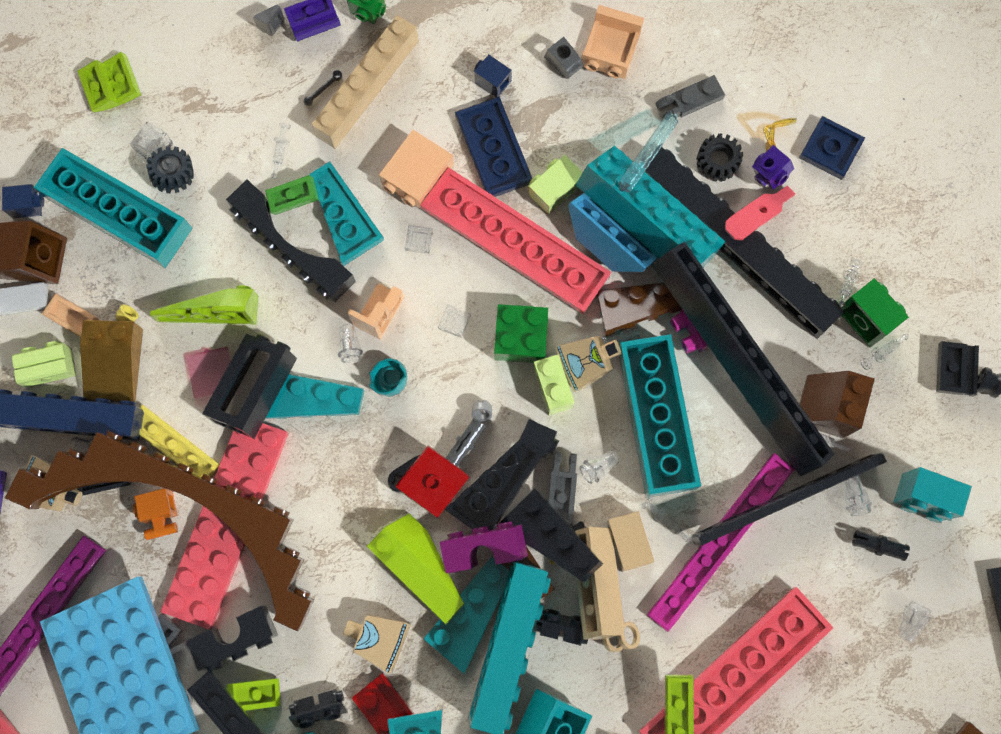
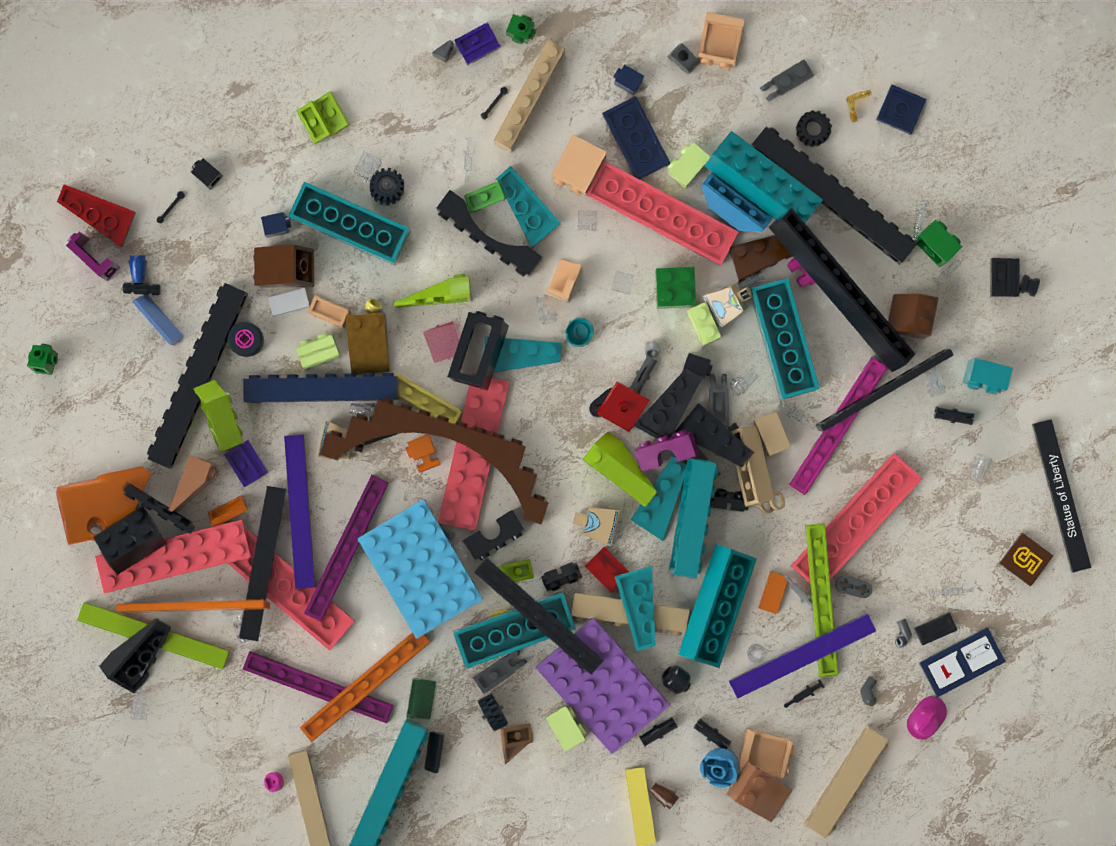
camera: 10 degrees left, 10 degrees up
(648, 152) = (758, 135): clear light blue axle -> none
(757, 213) = (841, 178): coral piece -> none
(772, 168) = (855, 134): dark purple brick -> none

